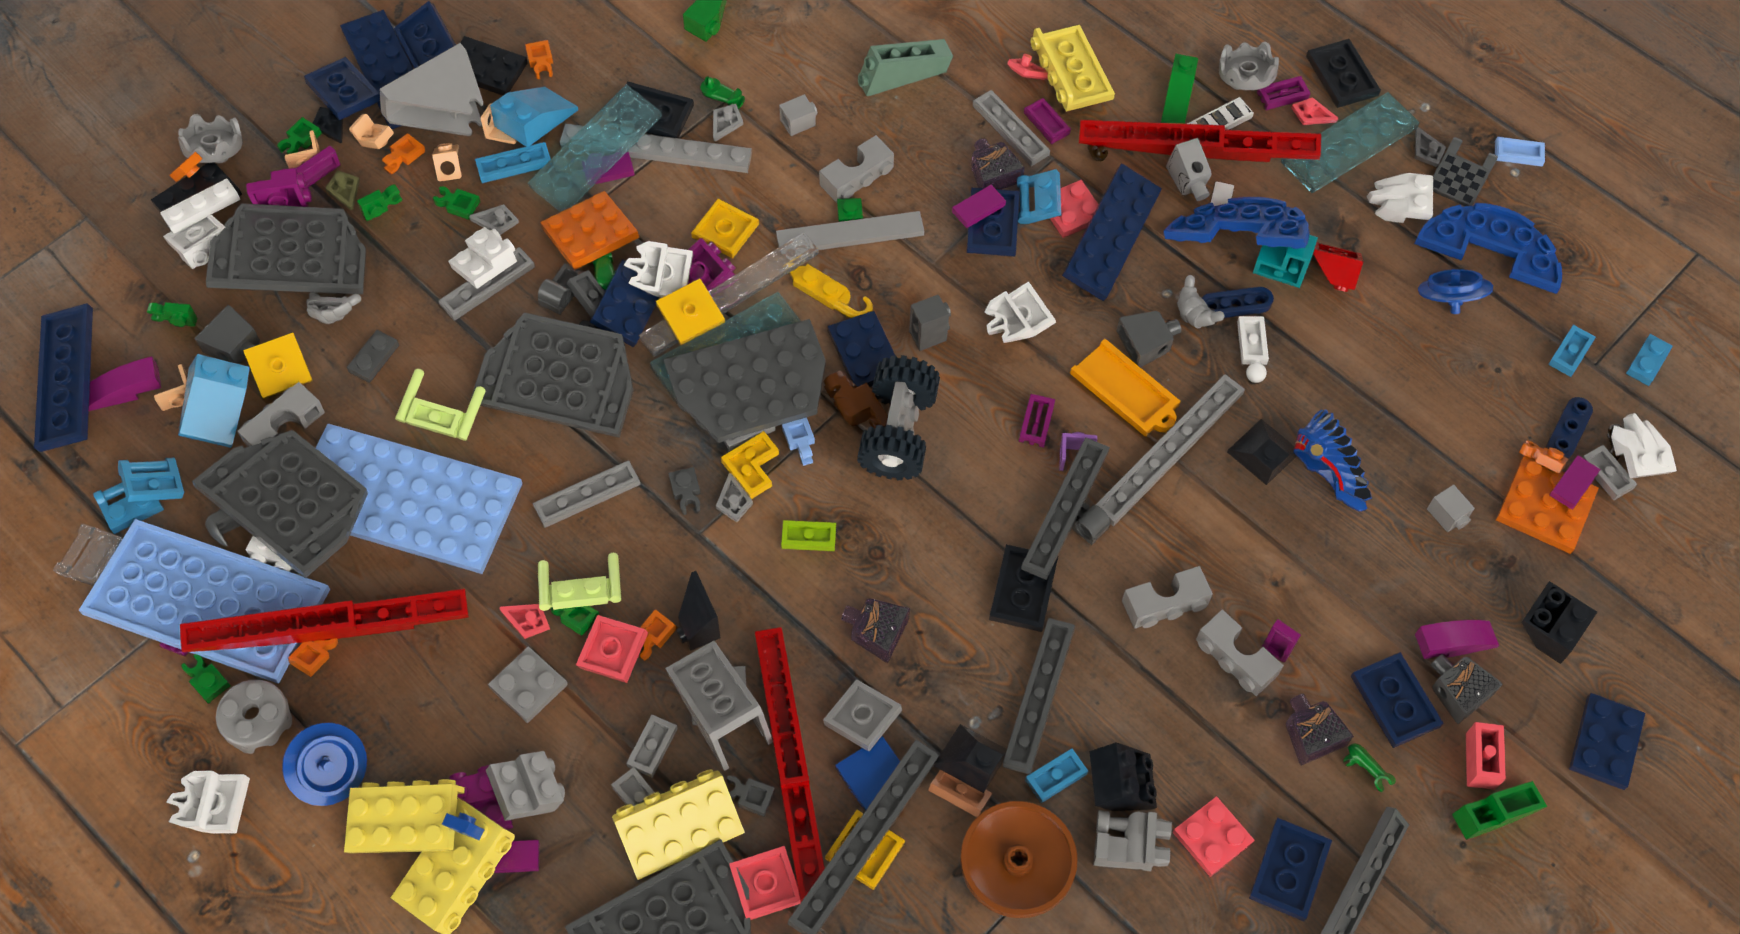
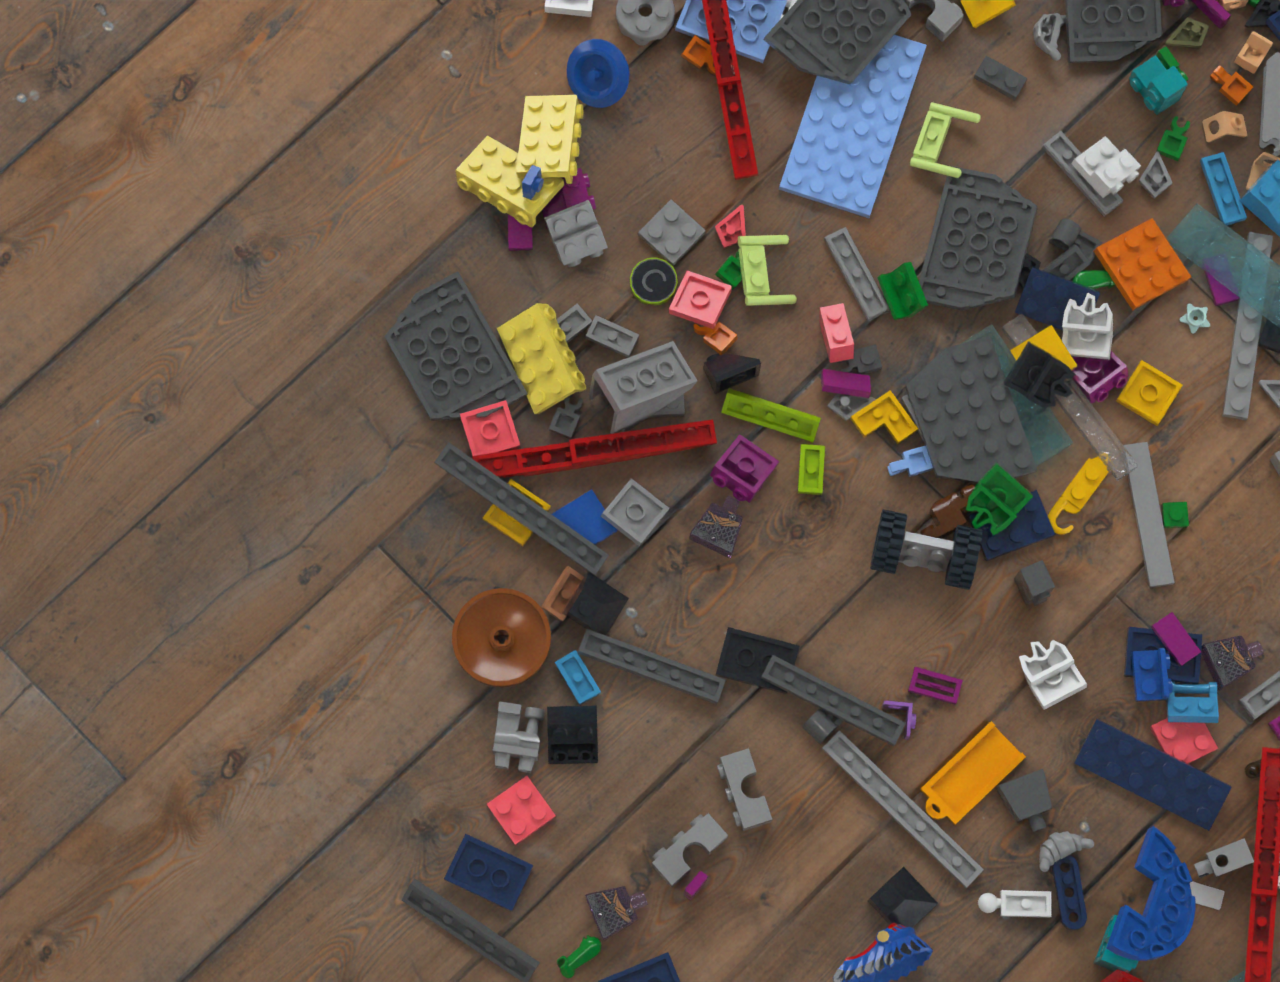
camera: 90 degrees right, 15 degrees up
(400, 211) = (1157, 85): none -> teal brick
(586, 703) = (653, 281): none -> black tile
(610, 443) = (903, 291): none -> green bracket
(644, 185) = (1200, 313): none -> light aqua plate
(656, 506) = (836, 333): none -> coral brick
(712, 309) = (1039, 376): none -> black plate
(712, 500) = (845, 383): none -> magenta tile
(747, 576) = (771, 415): none -> lime plate
(810, 602) = (743, 469): none -> magenta plate
(843, 181) = (1232, 539): light grey arch -> none
(843, 353) = (997, 499): none -> green plate
(1016, 225) = (1150, 675): none -> blue bracket

